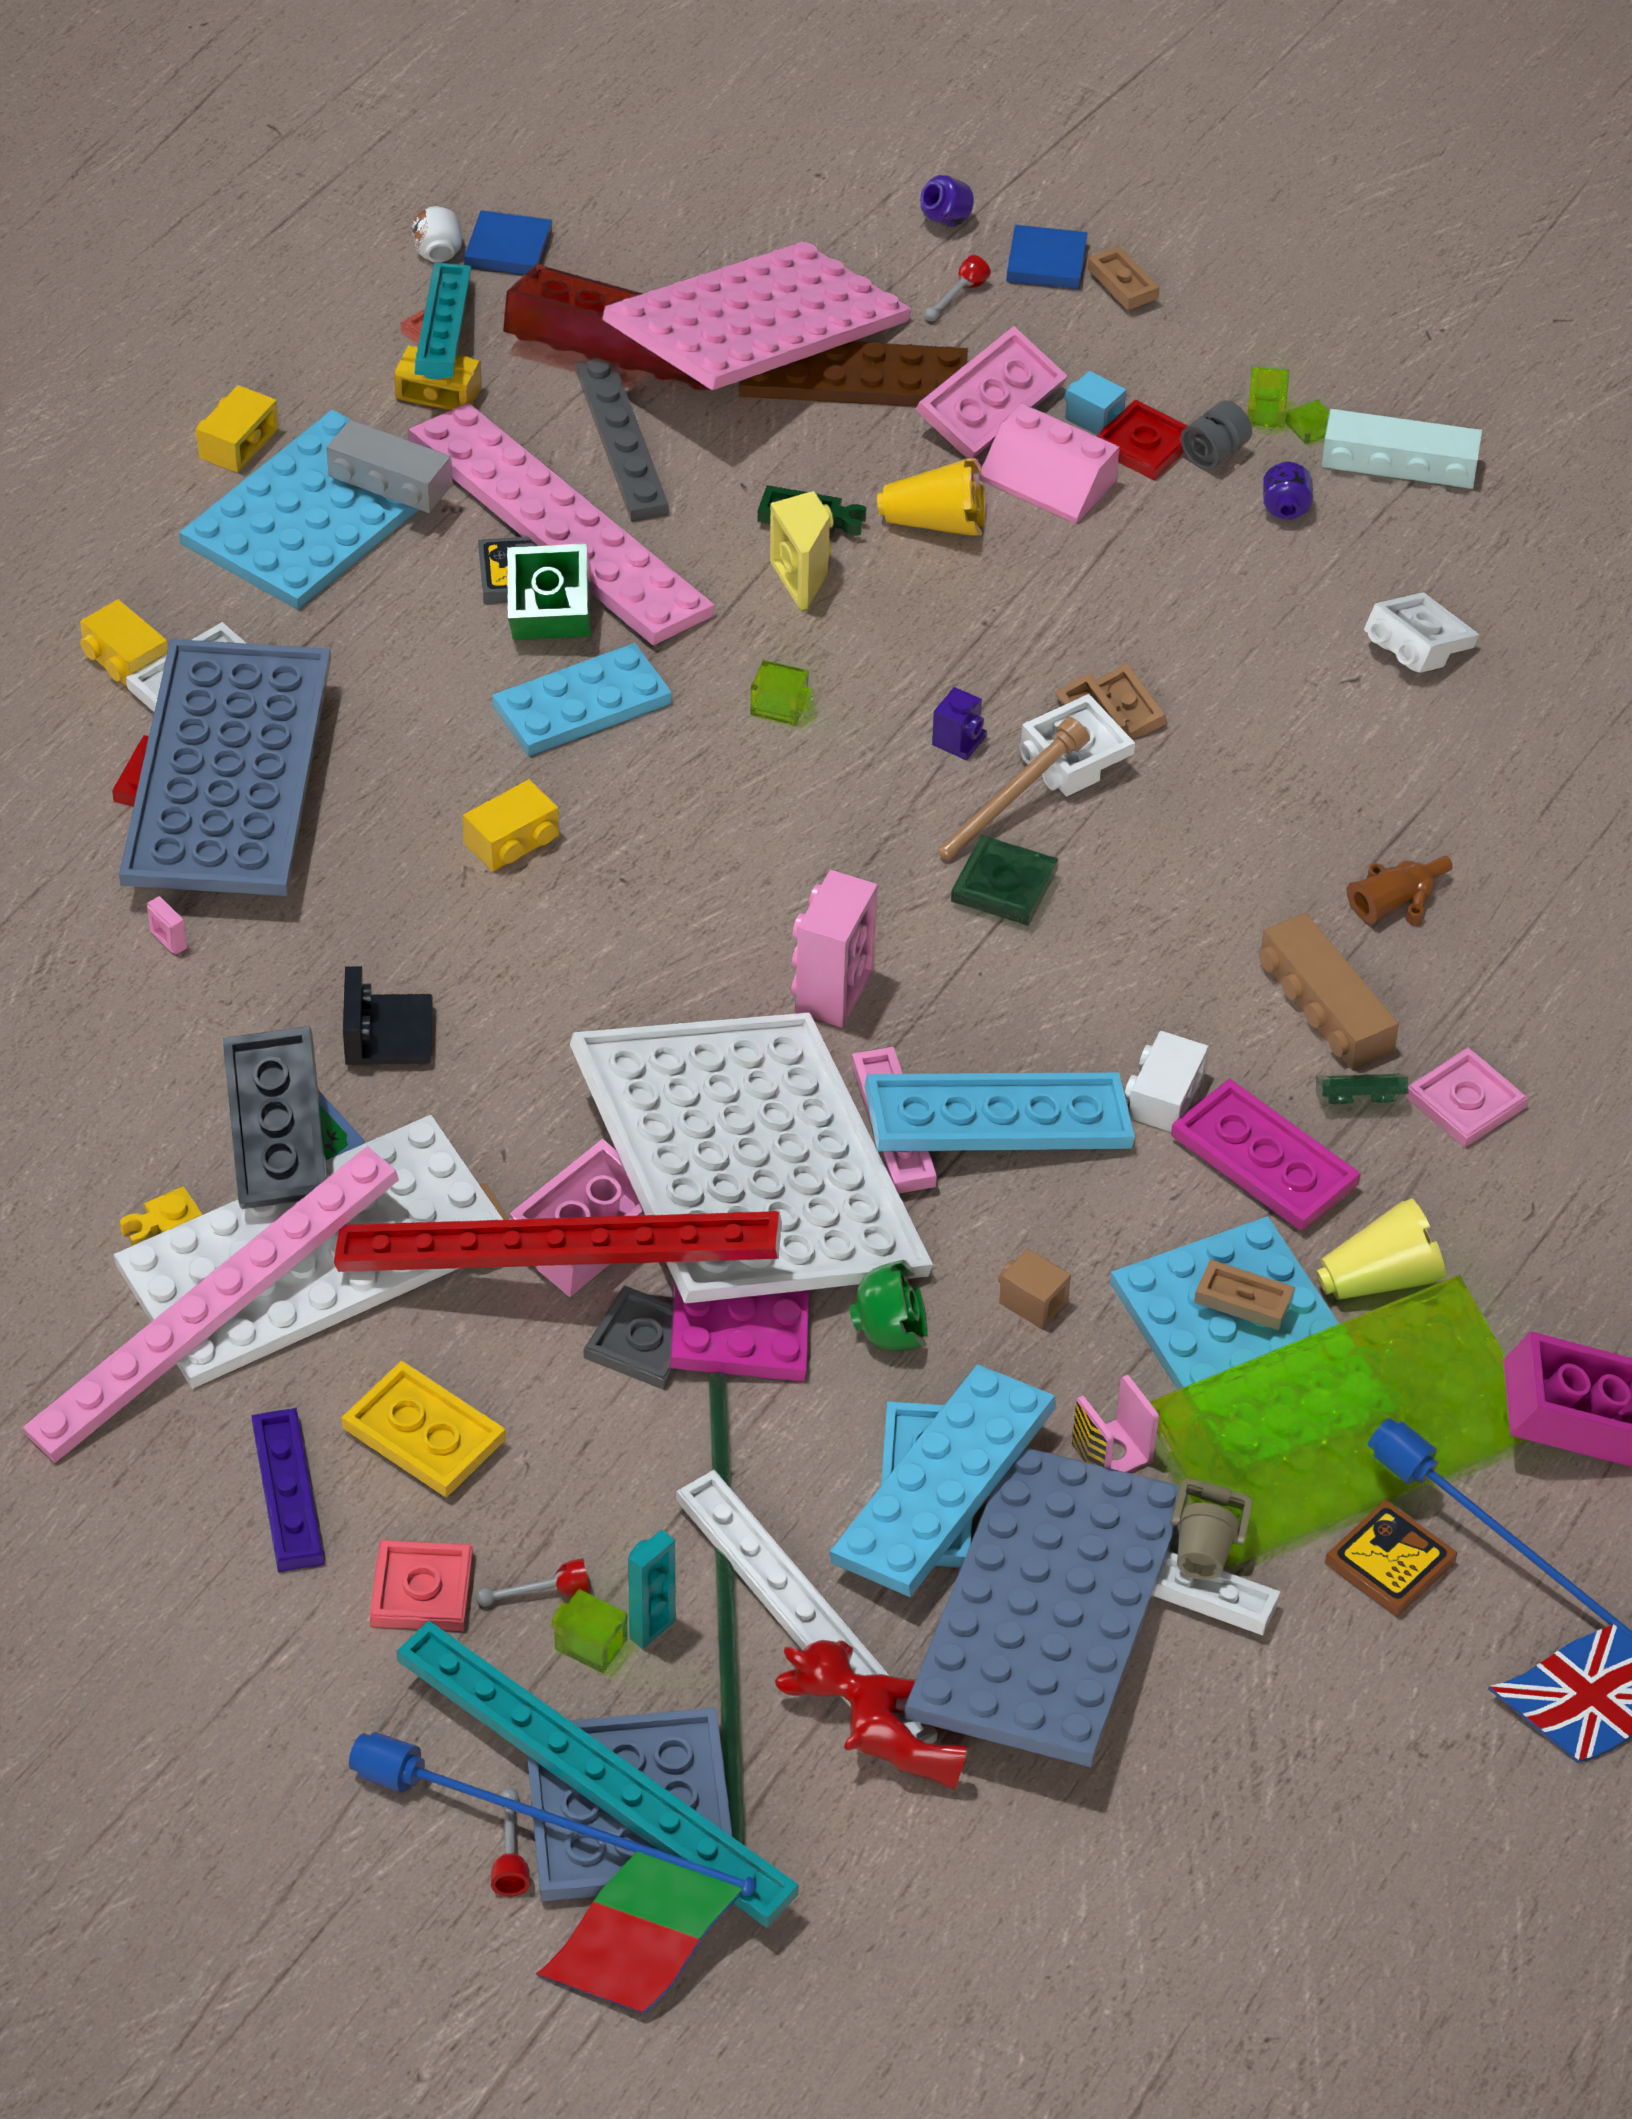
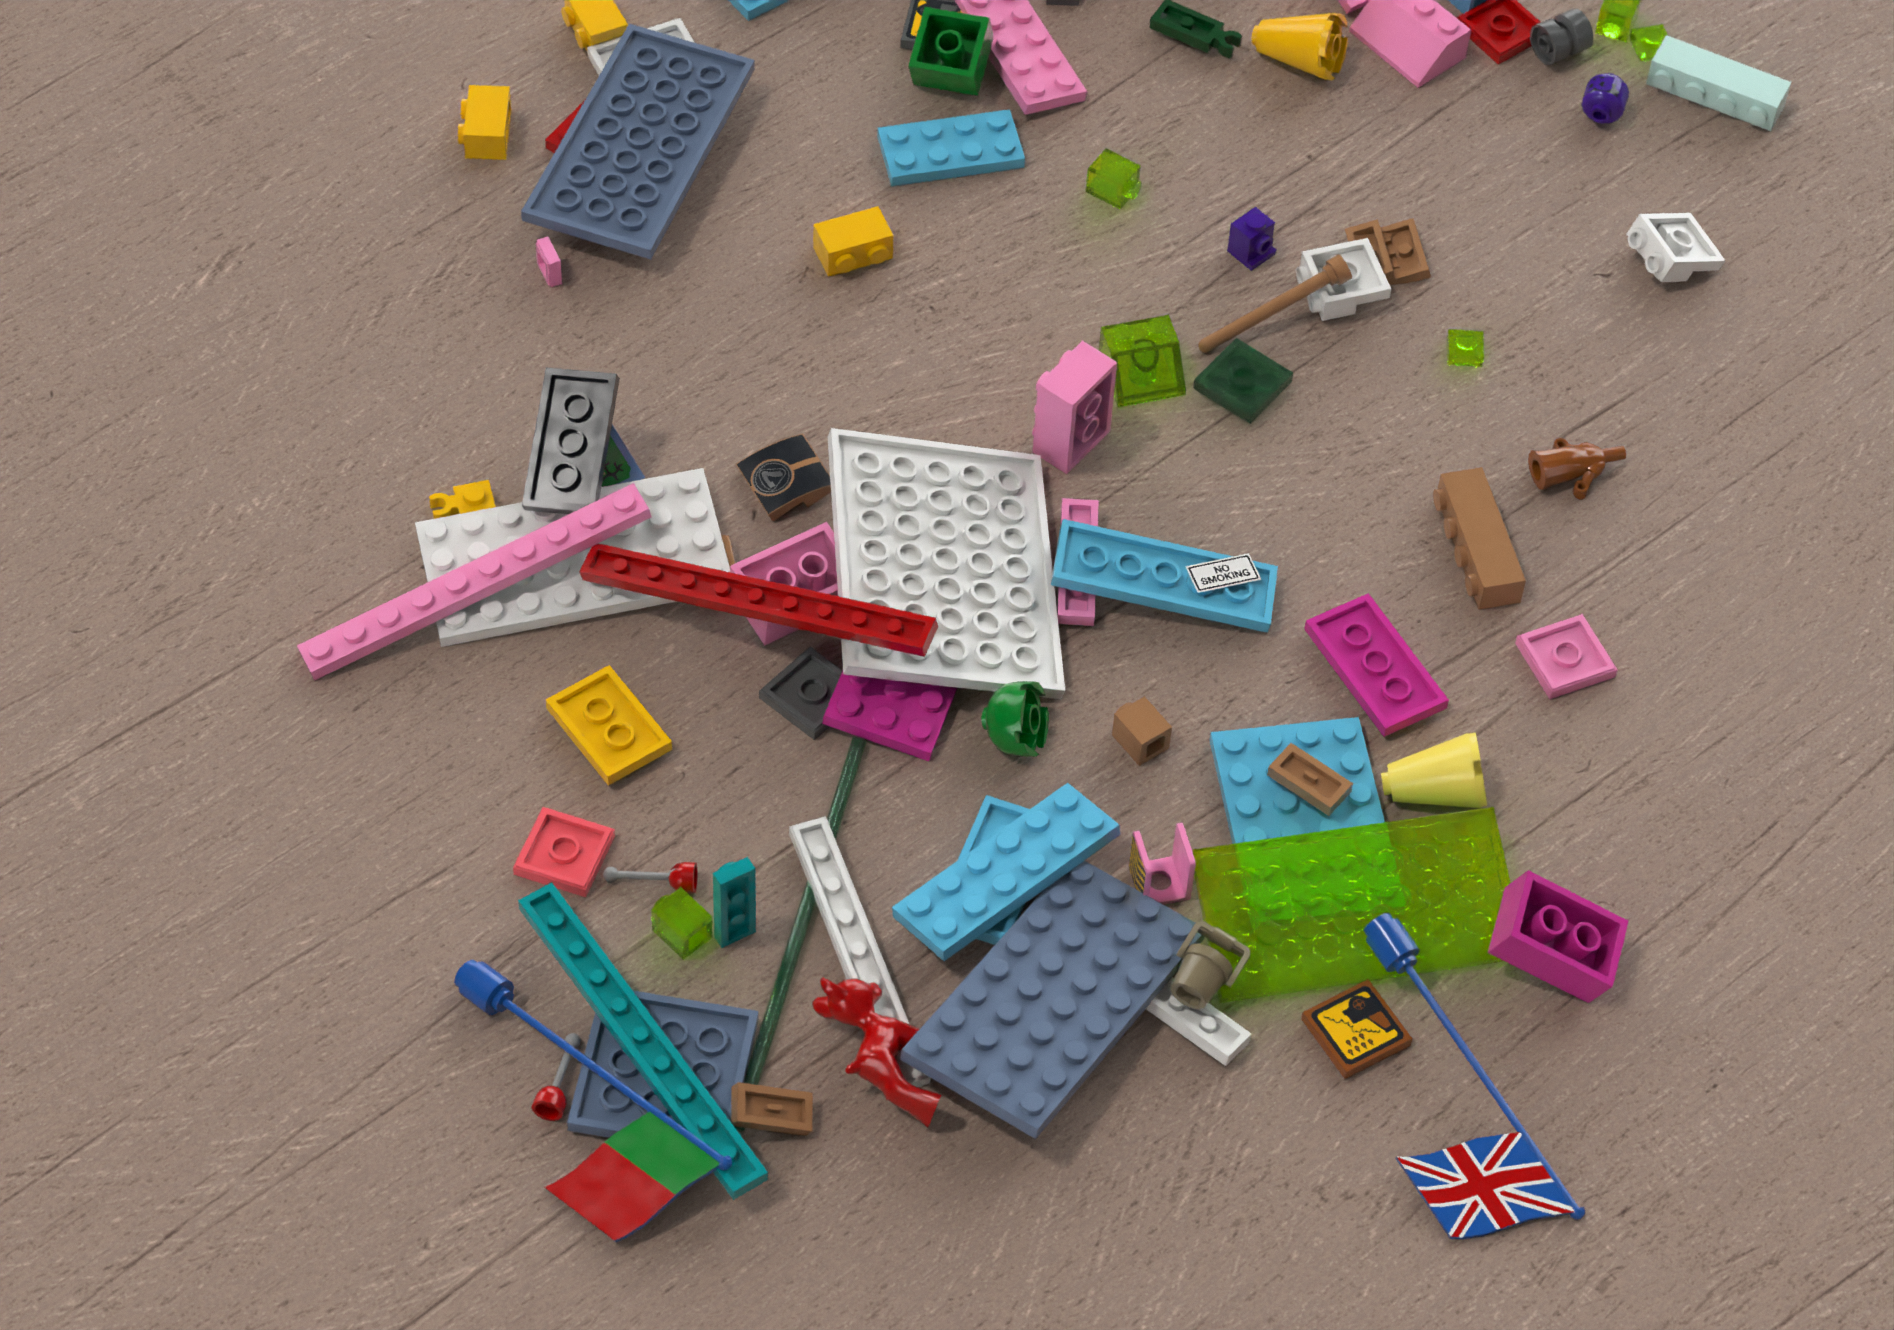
camera: 15 degrees right, 5 degrees up
(37, 786) = (486, 122): none -> yellow brick
(287, 1490) = (485, 747): dark purple tile -> none
(384, 1025) = (692, 385): black bracket -> none
(527, 1102) = (786, 475): none -> black slope
(772, 1813) = (771, 1109): none -> medium nougat plate
(801, 545) = (1174, 56): light yellow slope -> none
(903, 878) = (1146, 360): none -> clear neon green slope
(1063, 1093) = (1223, 573): none -> white sticker
(1166, 1081) = (1315, 582): white brick -> none
(1233, 790) = (1465, 347): none -> clear neon green plate
(1343, 1088) = (1462, 624): clear green plate -> none

